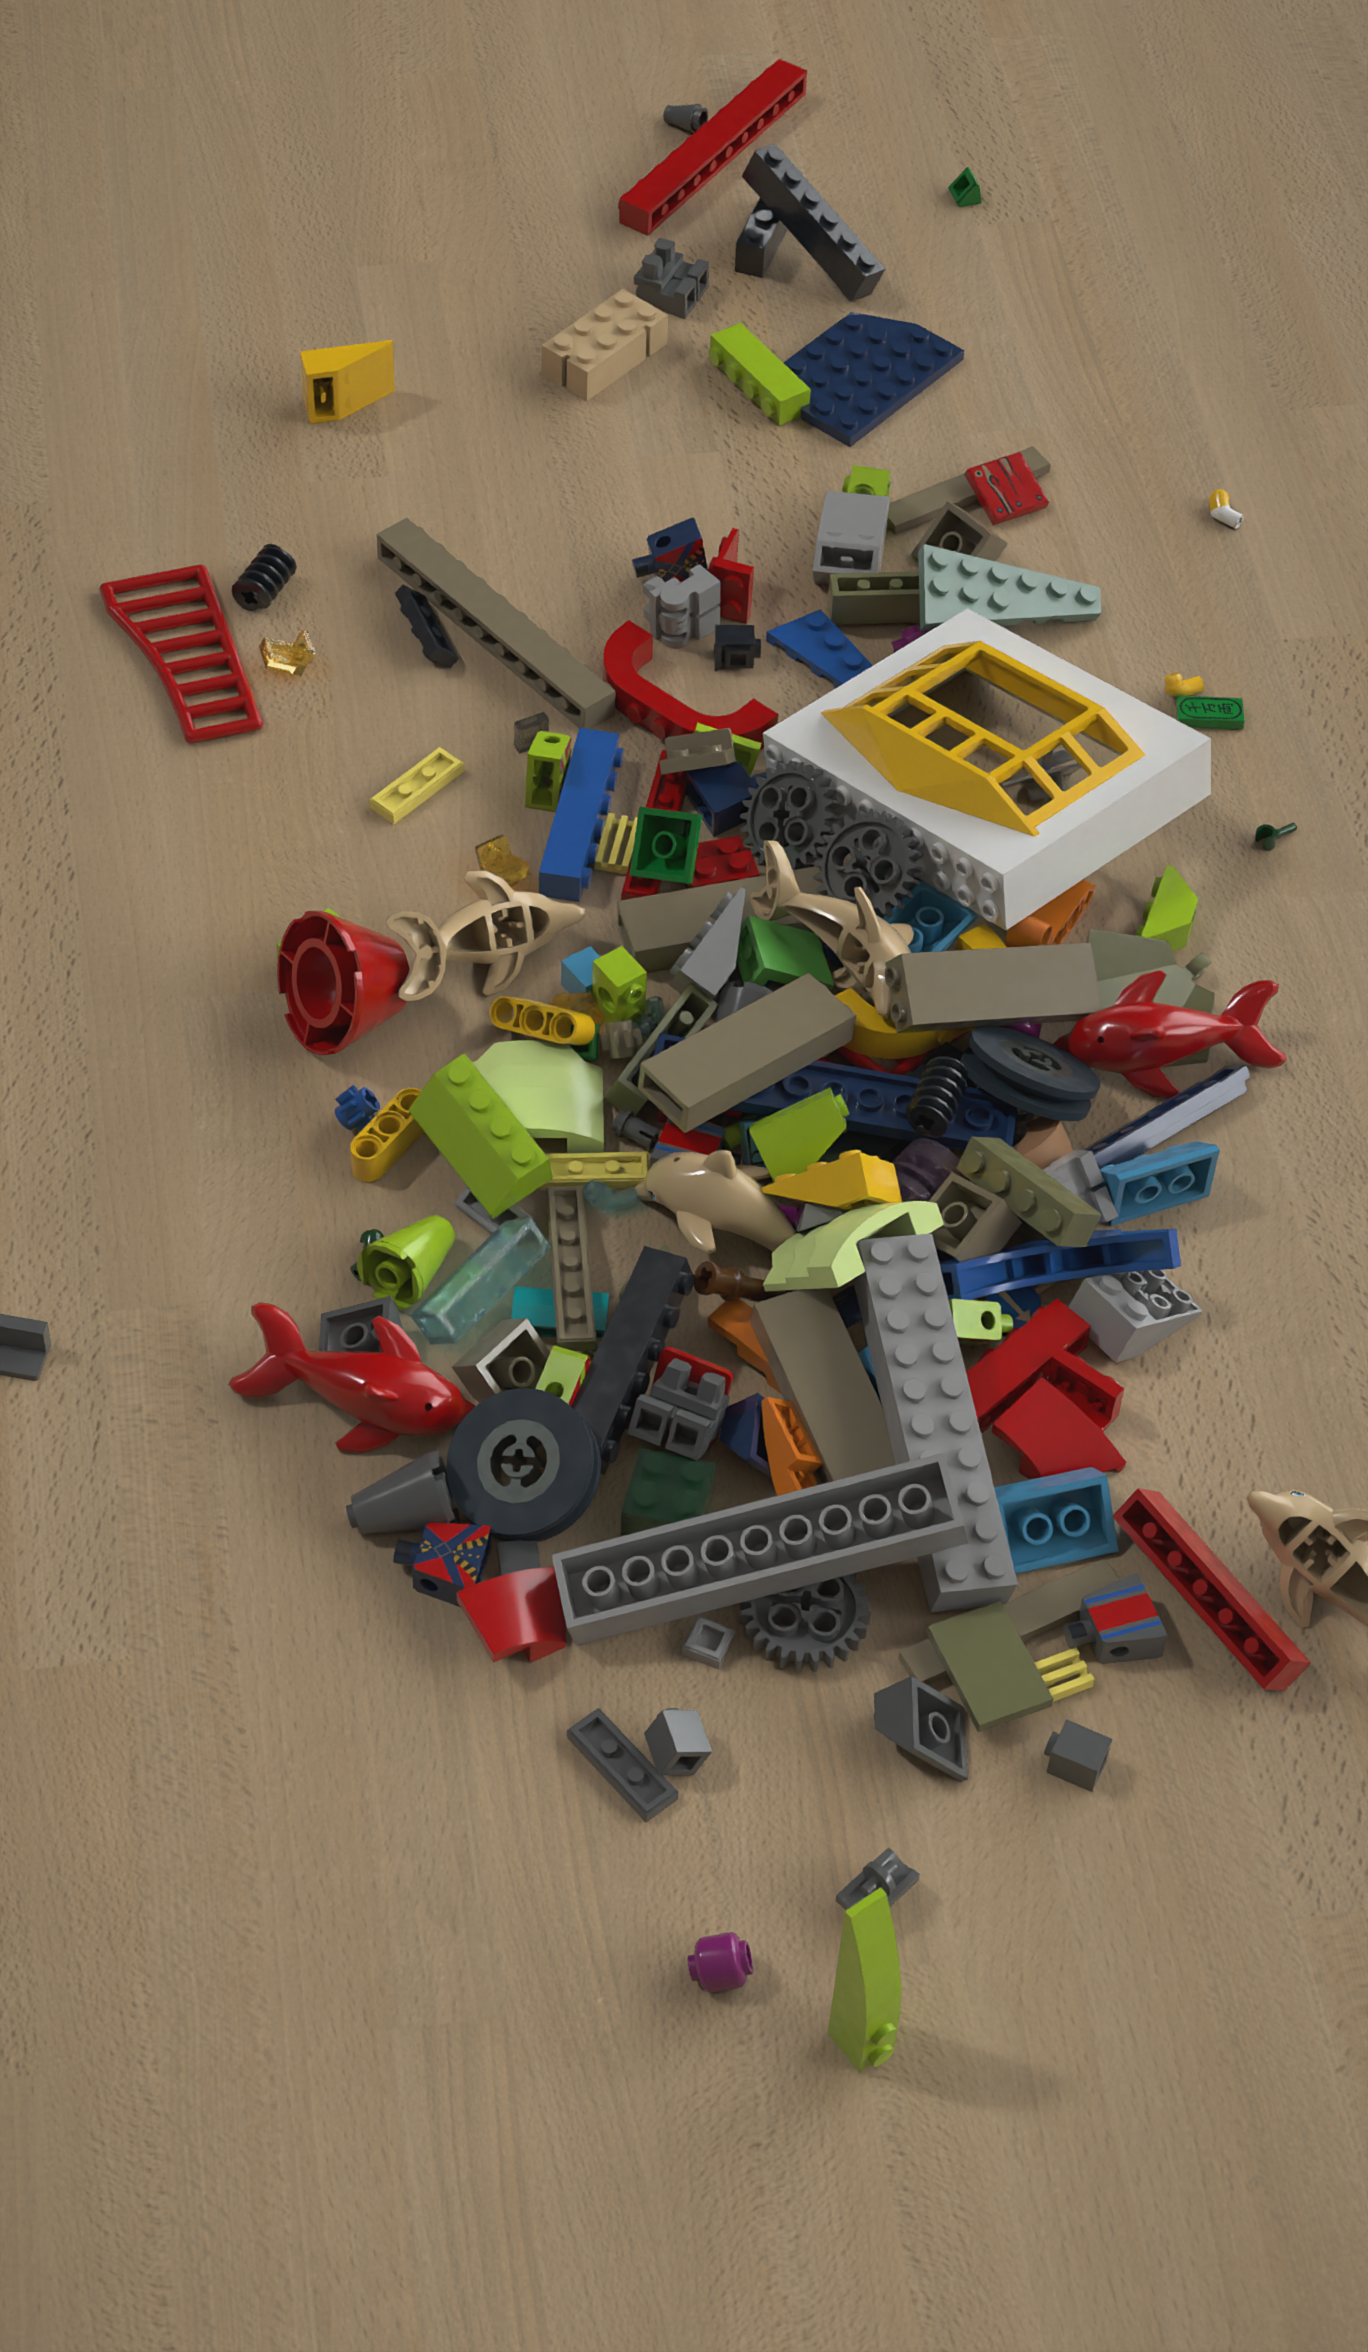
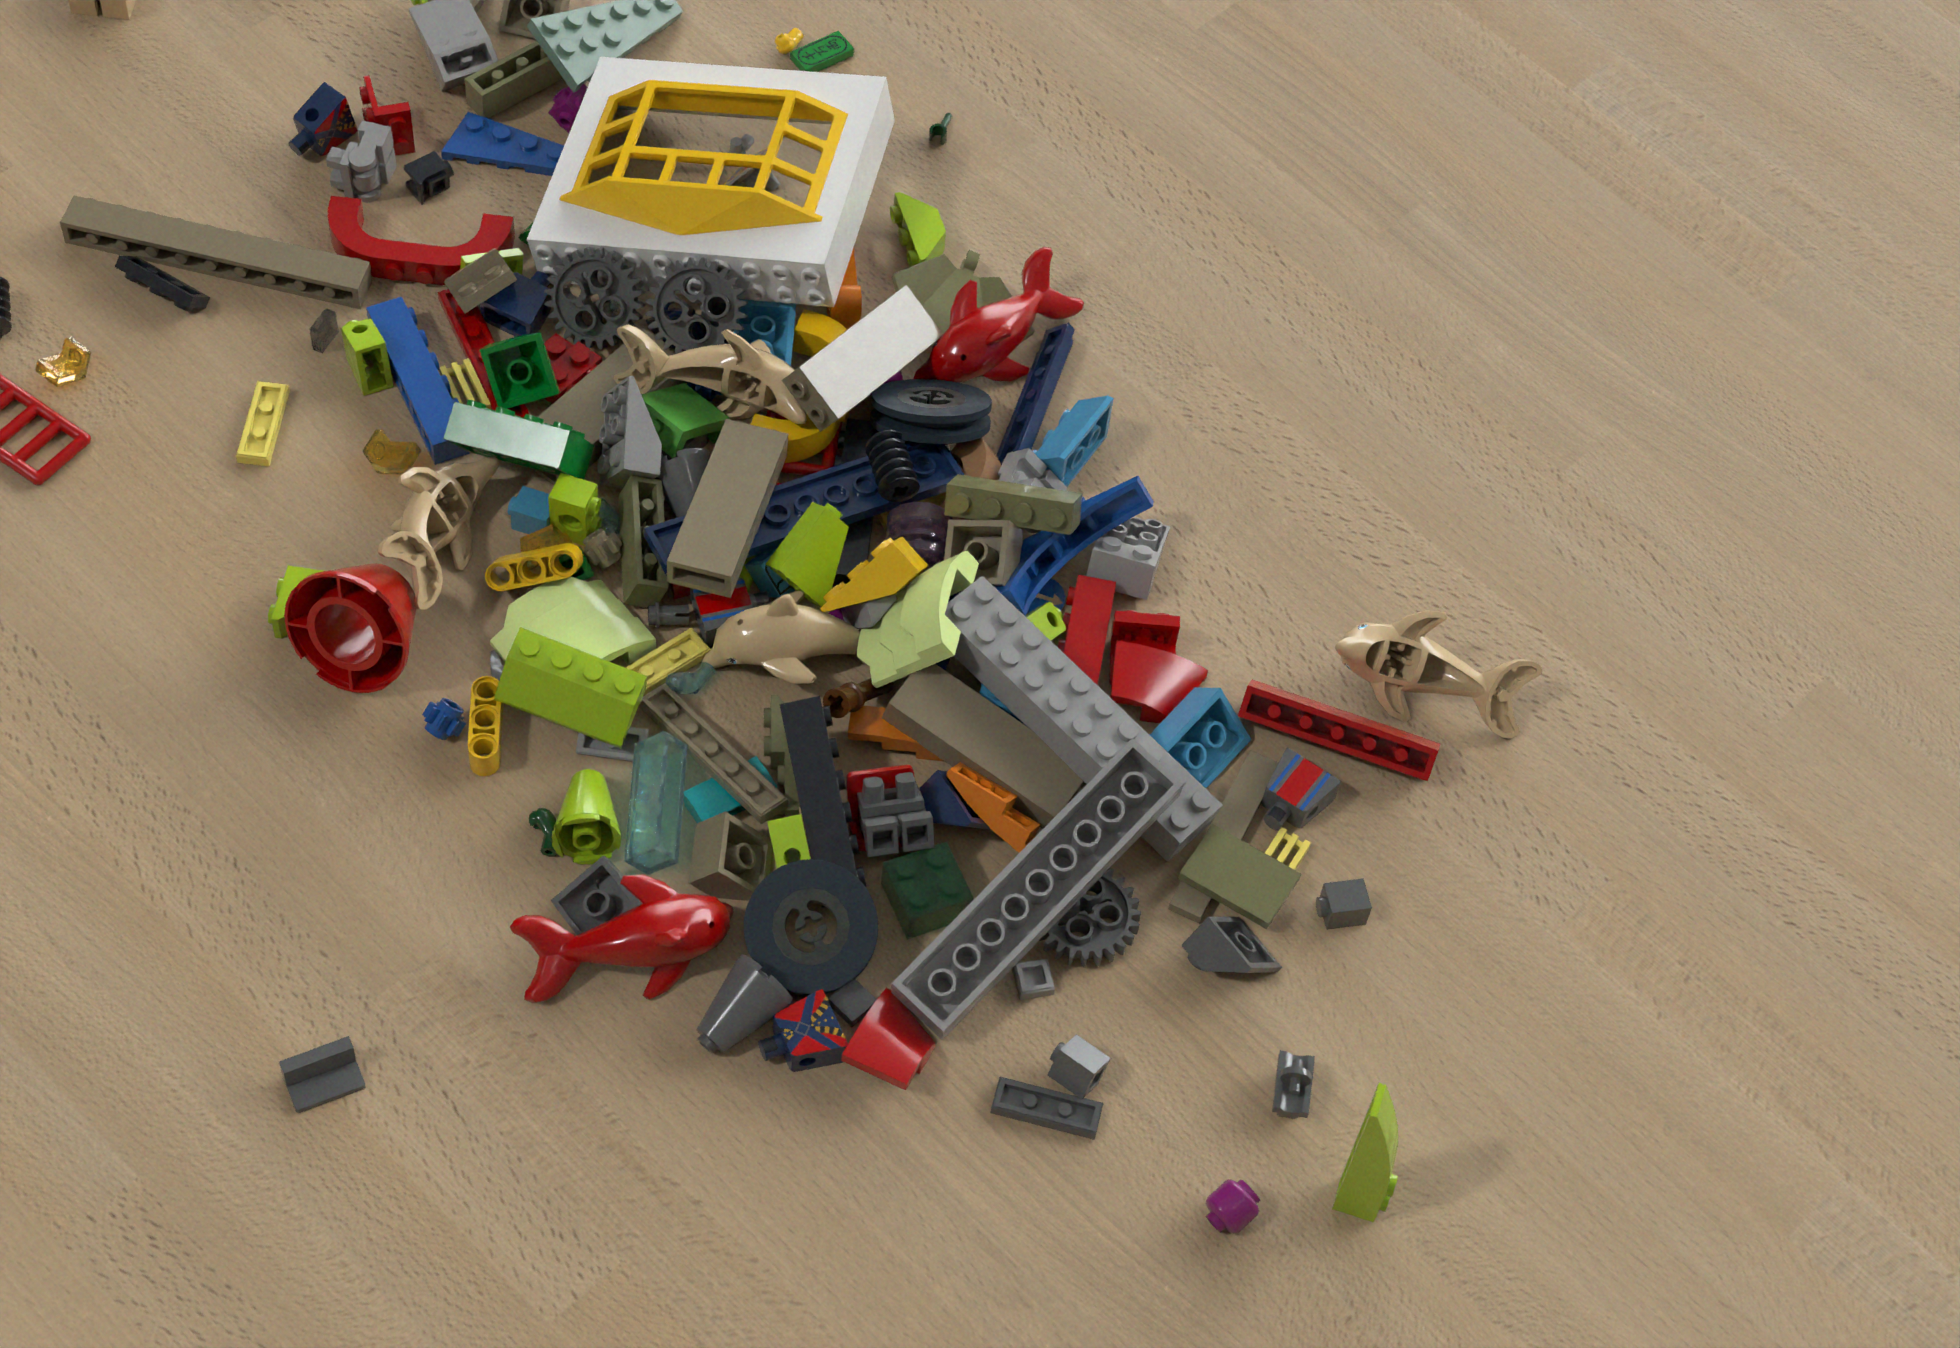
camera: 40 degrees left, 5 degrees up
(610, 900) = (519, 439): none -> brick

